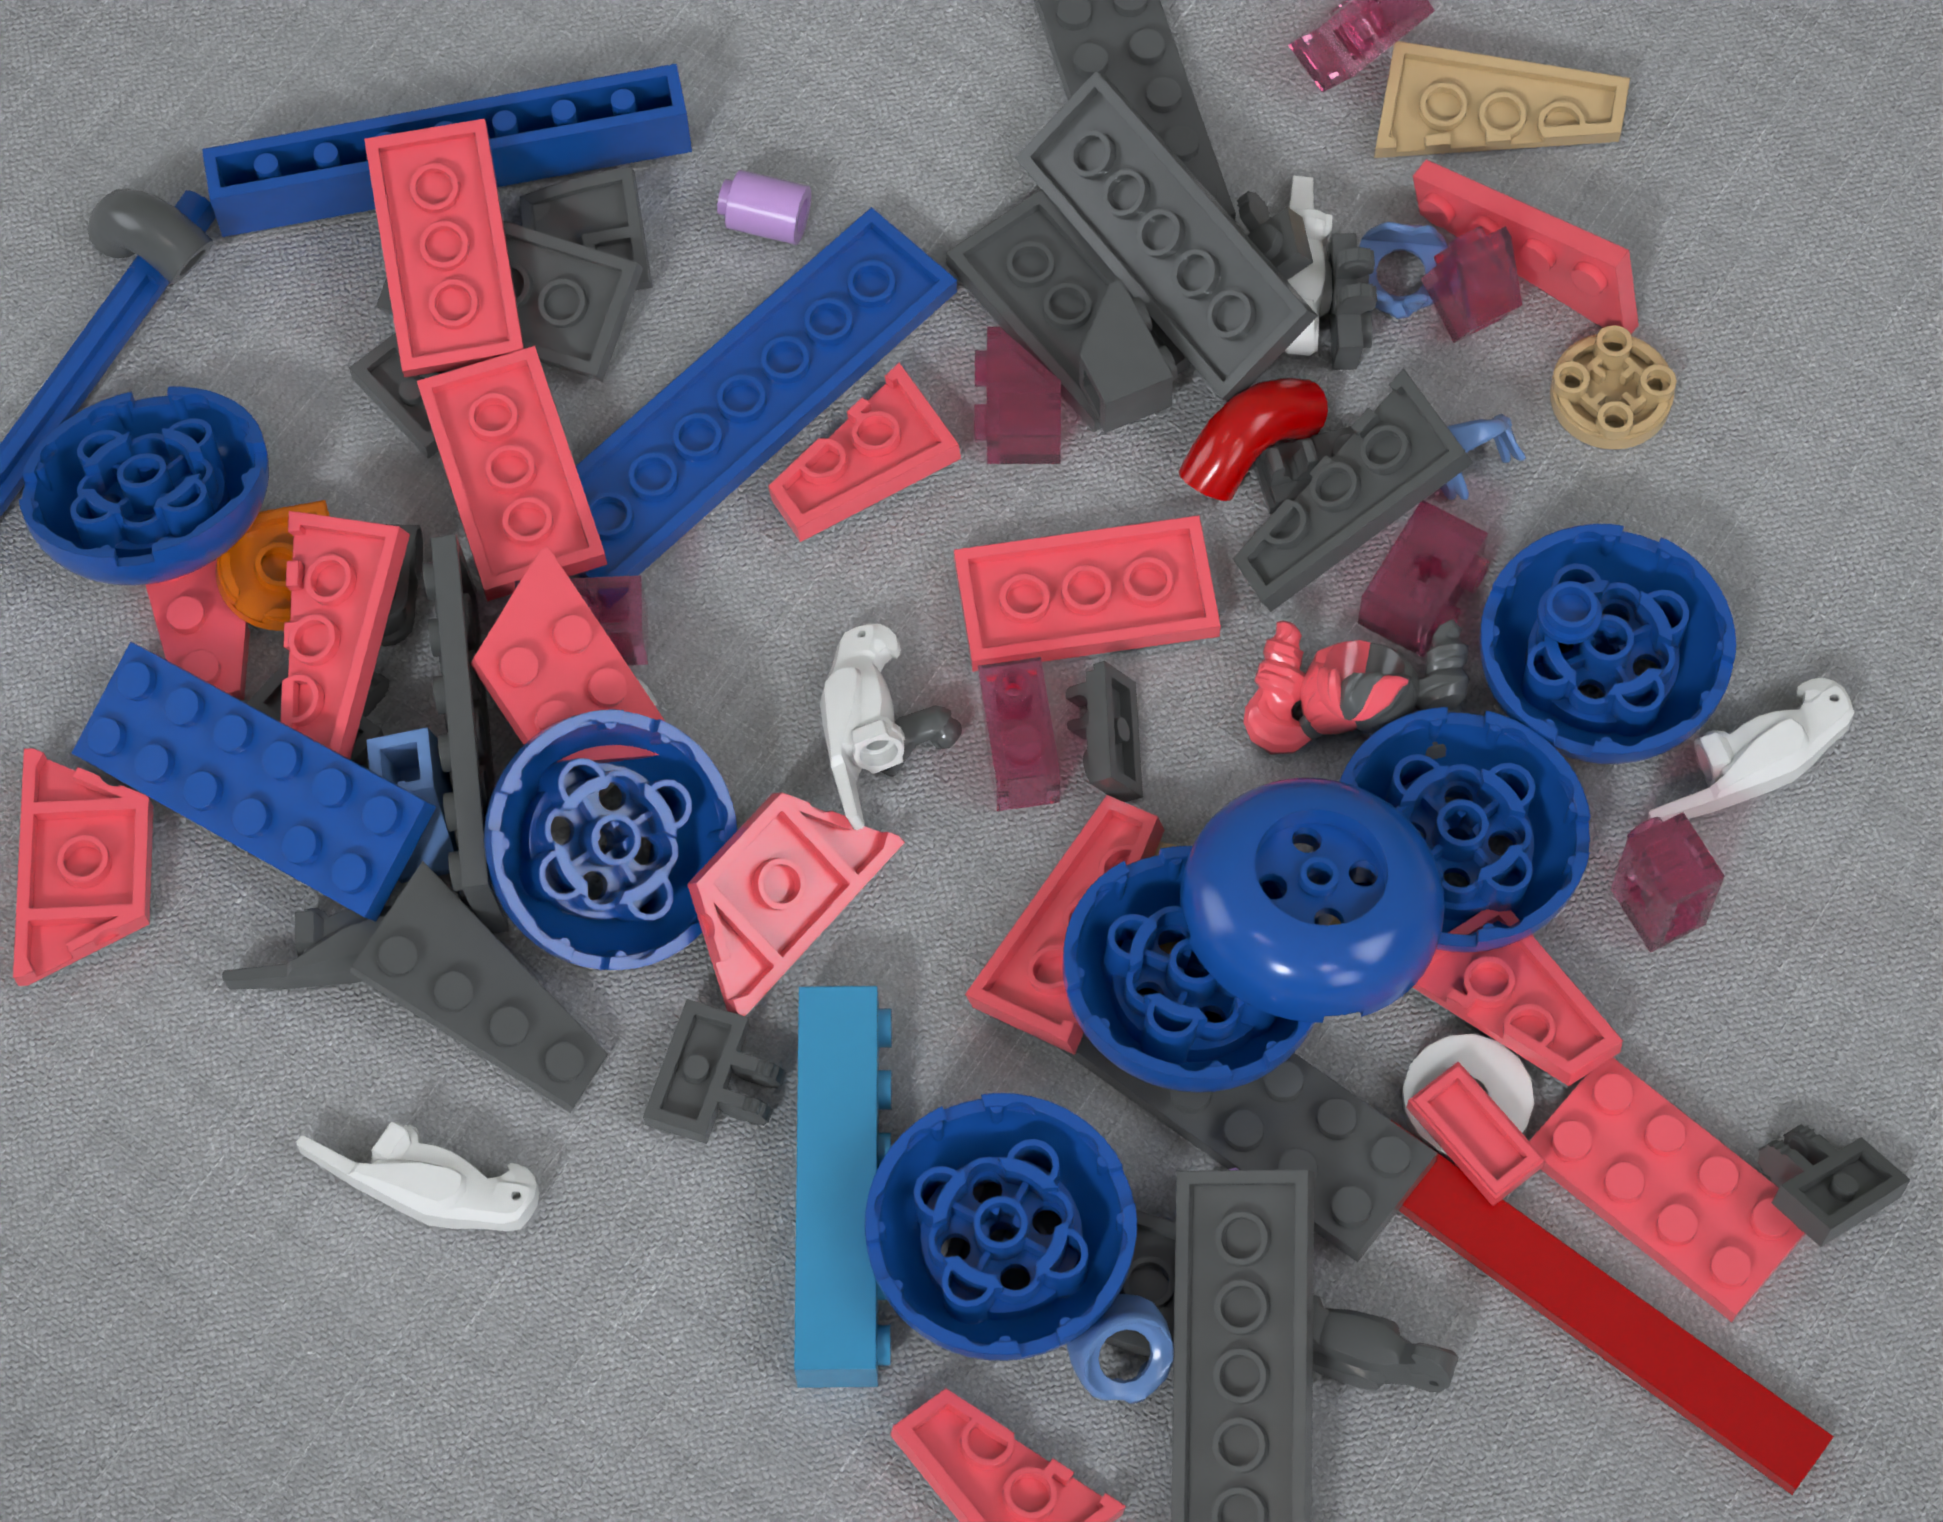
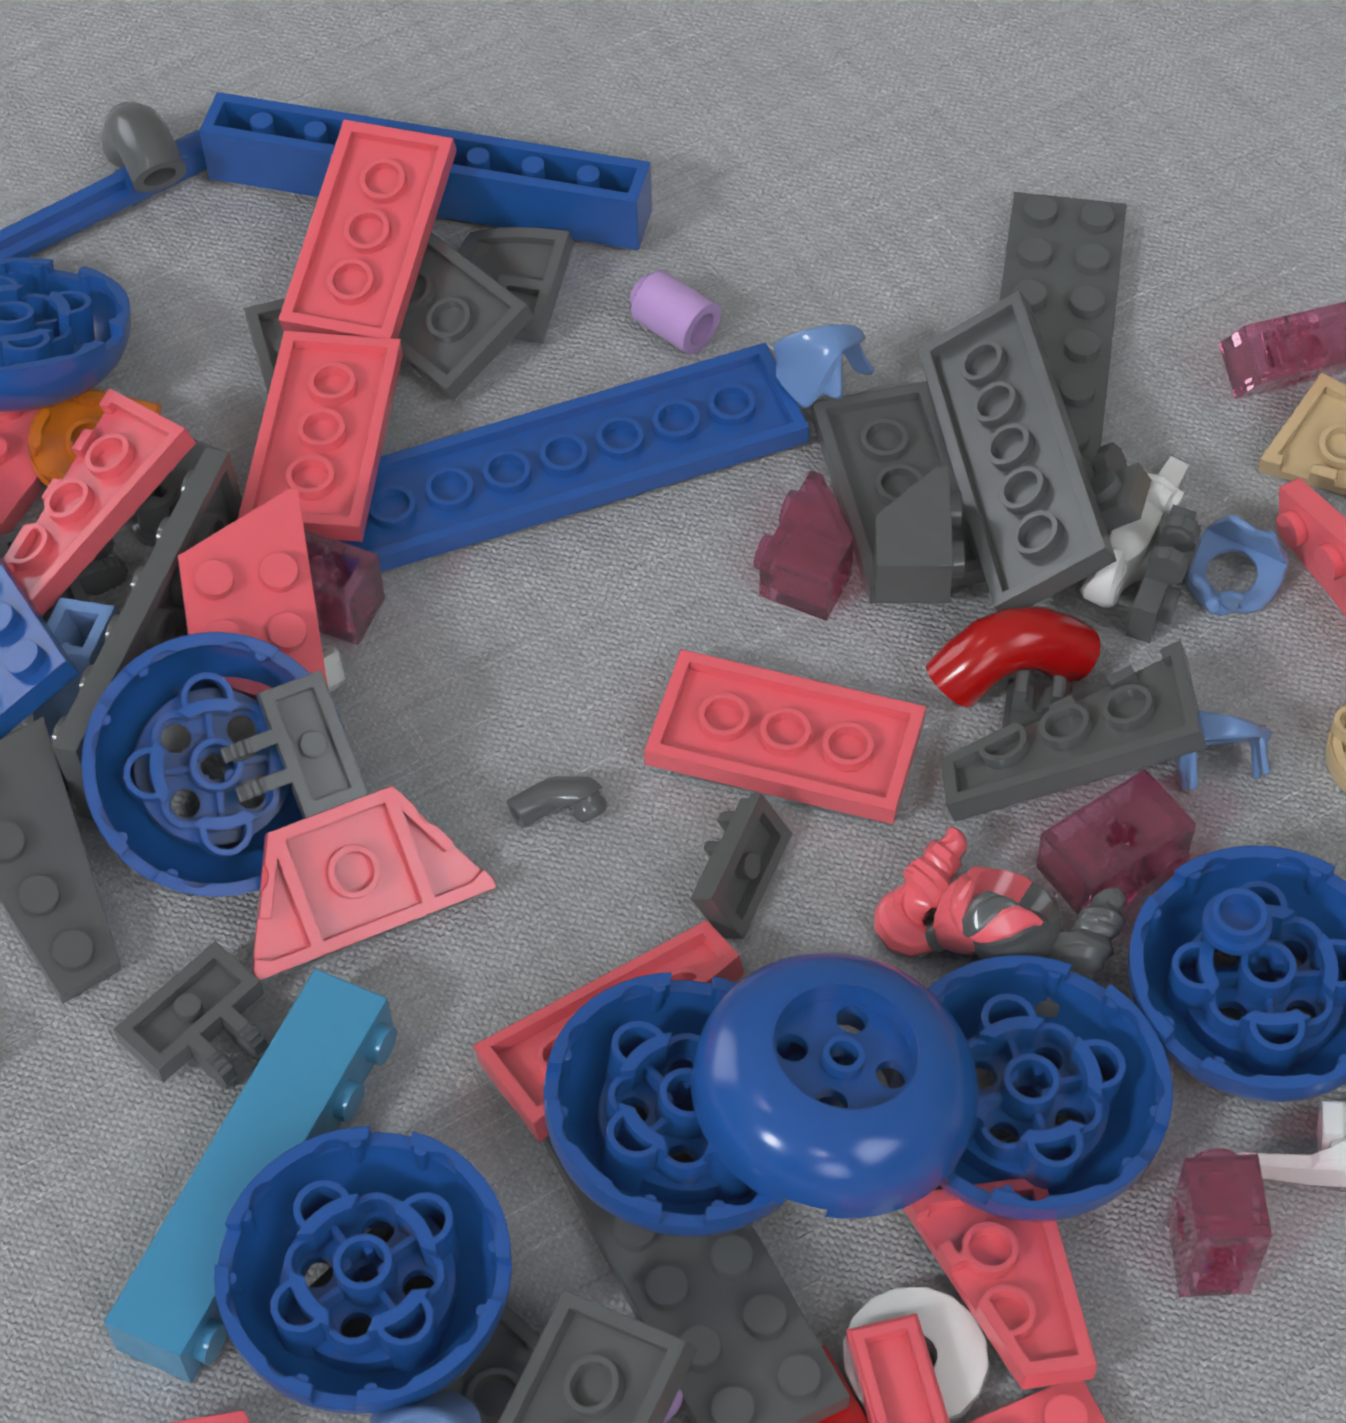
camera: 25 degrees right, 10 degrees down
(694, 788) = (309, 744): none -> dark grey hinge
(860, 712) = (512, 757): white animal -> none
(868, 458) = (655, 547): coral wing -> none
(938, 214) = (812, 361): none -> medium blue piece
(1019, 734) = (649, 832): clear pink slope -> none
(1474, 282) = (1294, 597): clear pink slope -> none

